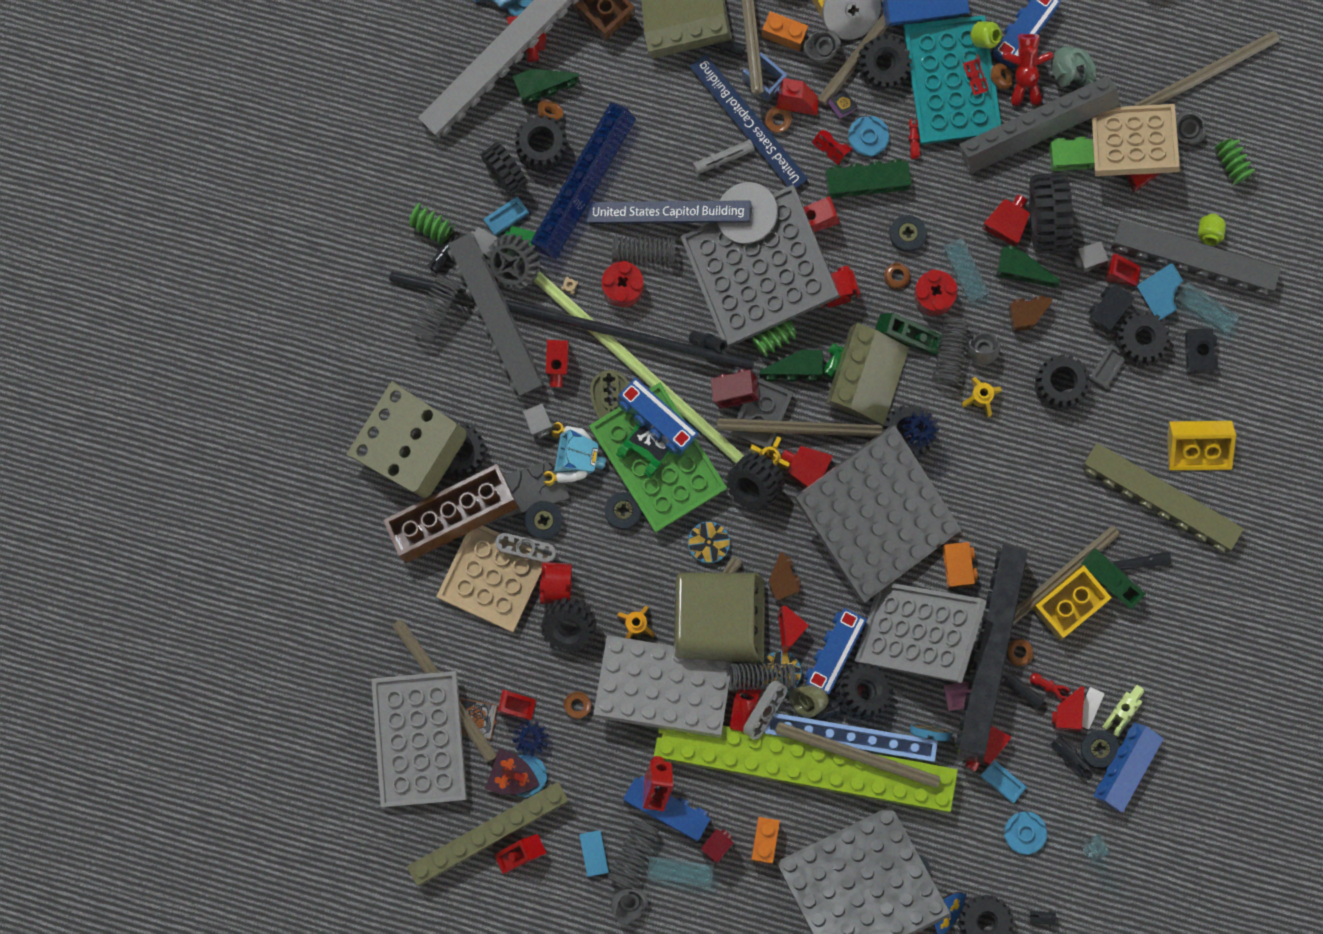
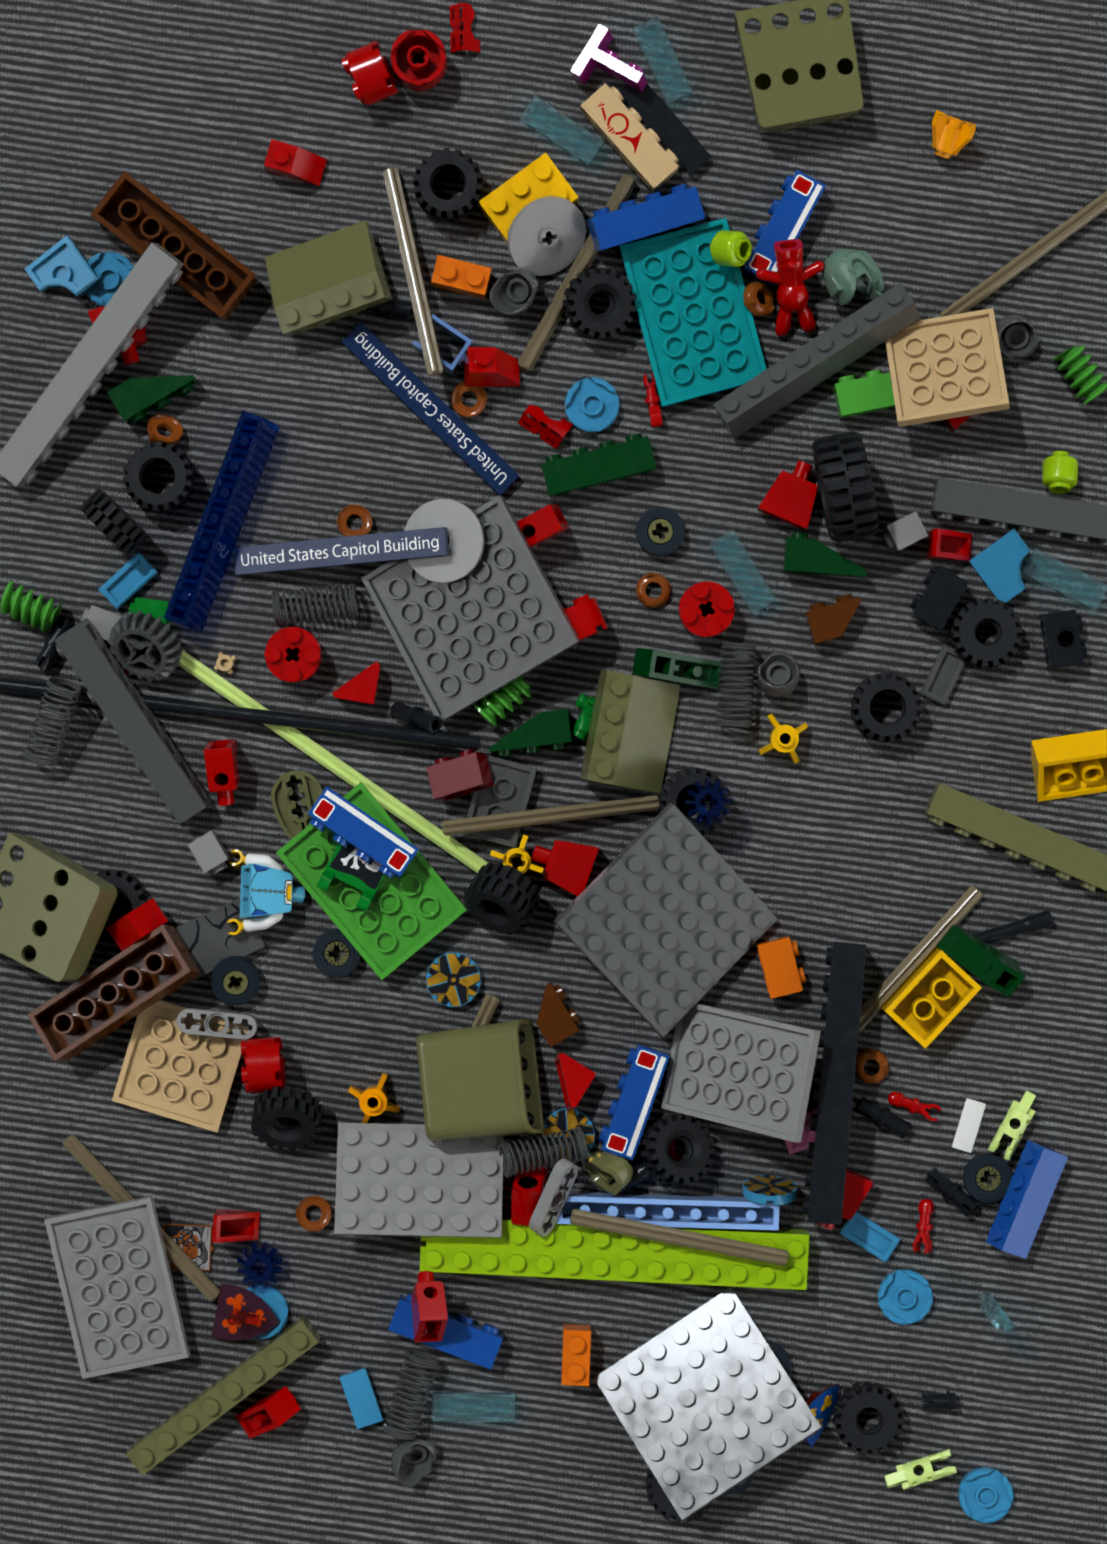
camera: 10 degrees left, 10 degrees up
(475, 462) = (137, 924): none -> red slope
(669, 315) = (361, 687): none -> red slope
(680, 188) = (354, 510): none -> dark orange piece
(717, 845) = (516, 1373): dark red brick -> none
(722, 157) = (403, 461): light grey pin -> none
(842, 104) = (552, 367): tile -> none
(974, 73) = (721, 301): red piece -> none
(1049, 767) = (926, 1209): none -> red piece
(1070, 712) = (944, 1137): red slope -> none

